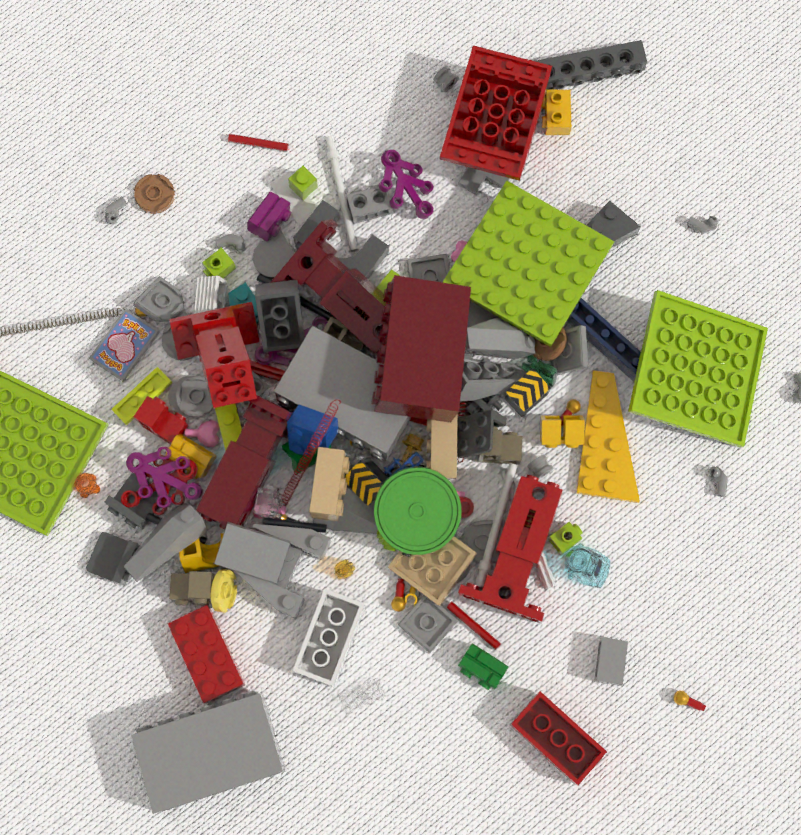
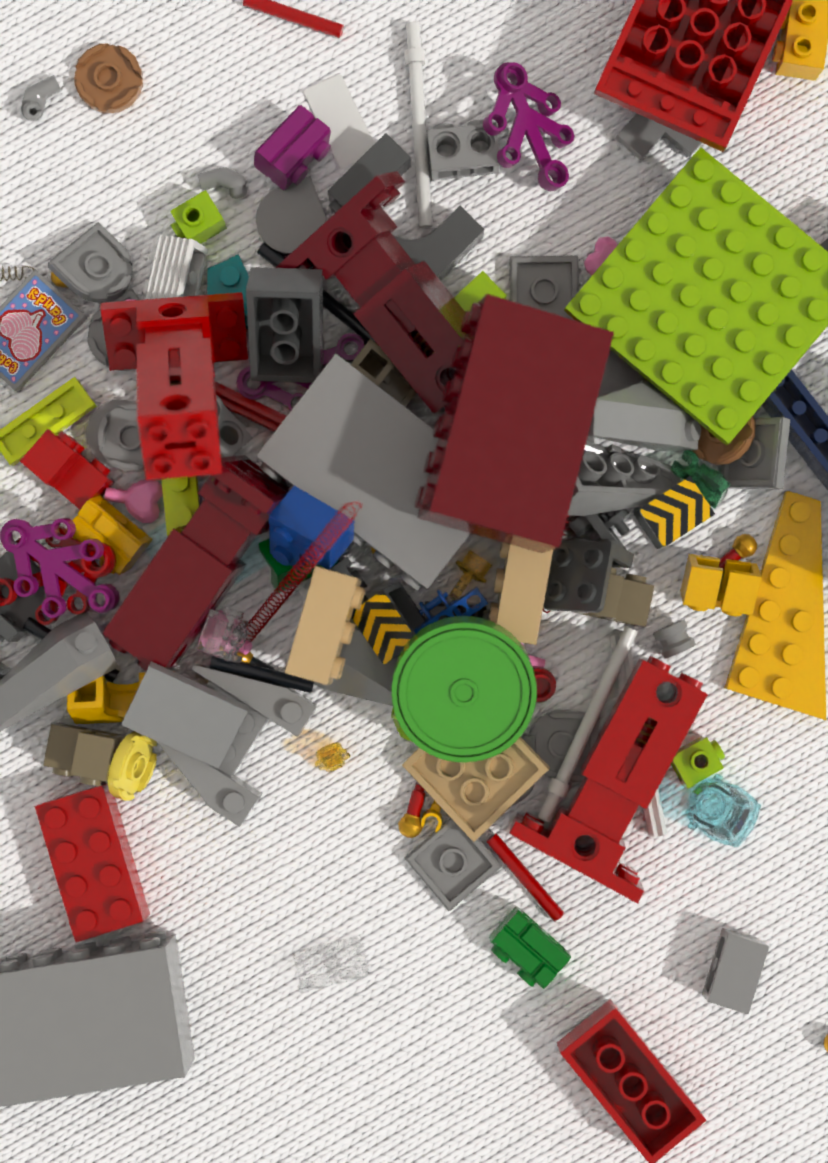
camera: 10 degrees right, 10 degrees up
(303, 182) = (357, 97): lime brick -> none
(329, 637) = (290, 867): white brick -> none

